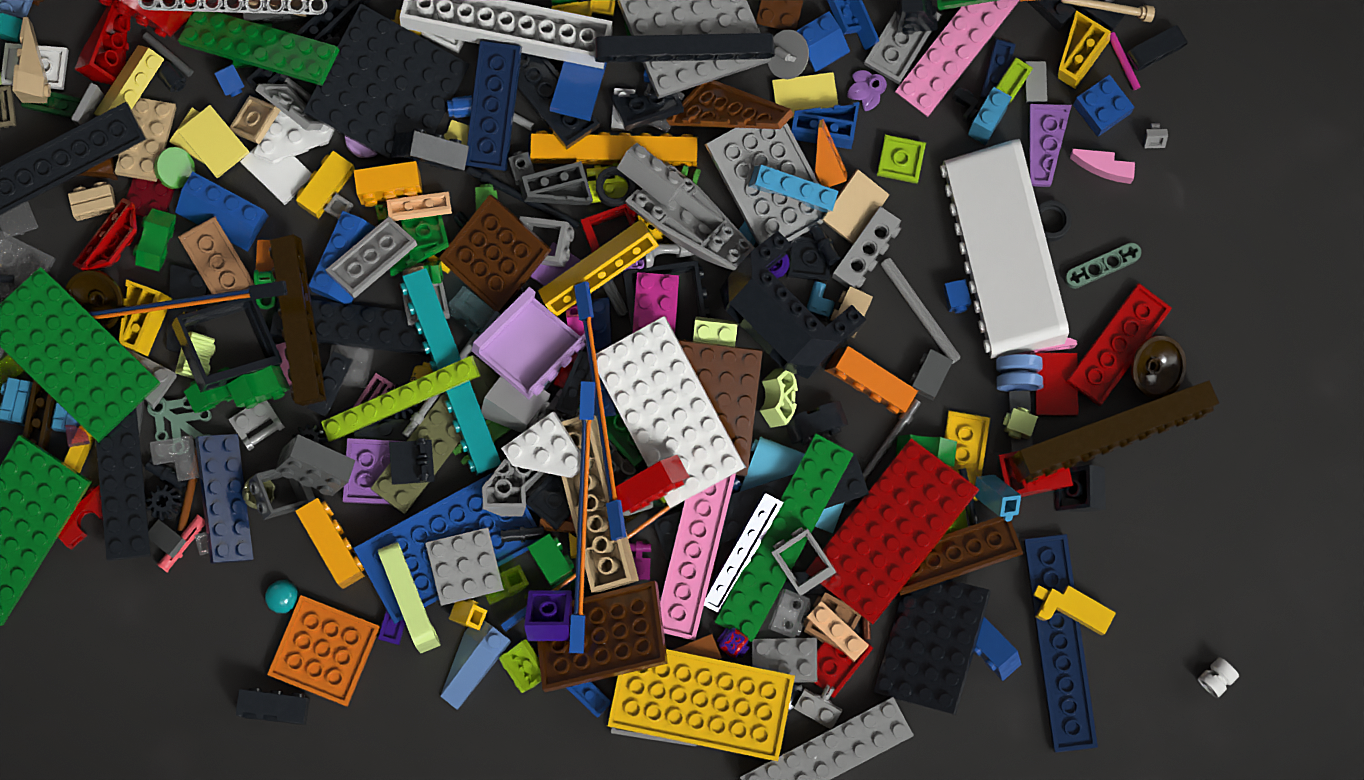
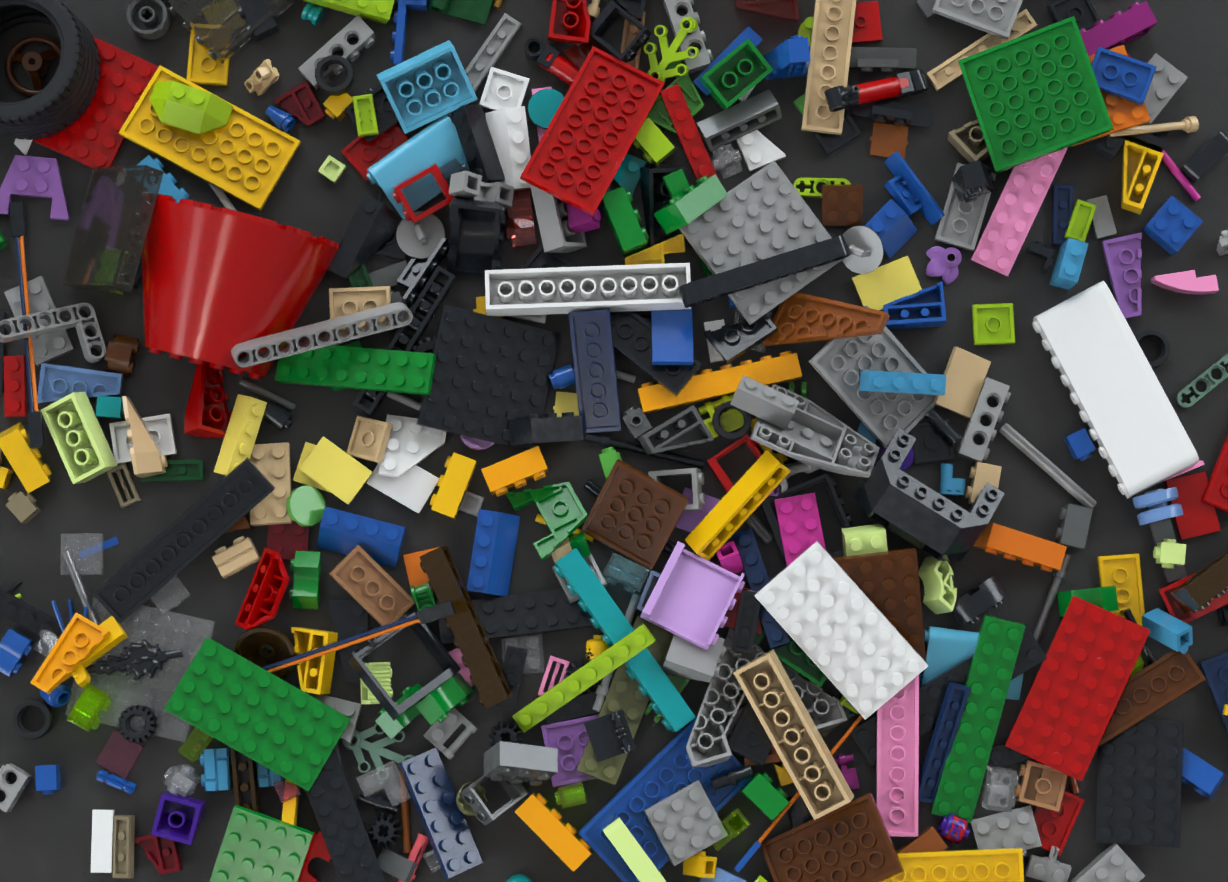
camera: 15 degrees left, 5 degrees up
(88, 105) = (207, 472): light grey tile -> none
(229, 80) = (335, 407): blue brick -> none
(289, 103) = (401, 417): light grey wing -> none
(358, 511) = (571, 795): none -> clear neon green brick
(371, 257) = (520, 549): light grey plate -> none
(419, 206) = (549, 485): light nougat plate -> none
(545, 449) = (738, 696): white plate -> none
(548, 615) = (778, 850): dark purple slope -> none
(577, 626) = (770, 655): piece -> none
(614, 508) = (818, 739): piece -> none
(651, 484) = (844, 706): red brick -> none
(815, 579) = (1018, 753): light grey window -> none
(829, 165) = (928, 348): orange slope -> none
(837, 631) = (1050, 796): light nougat plate -> none

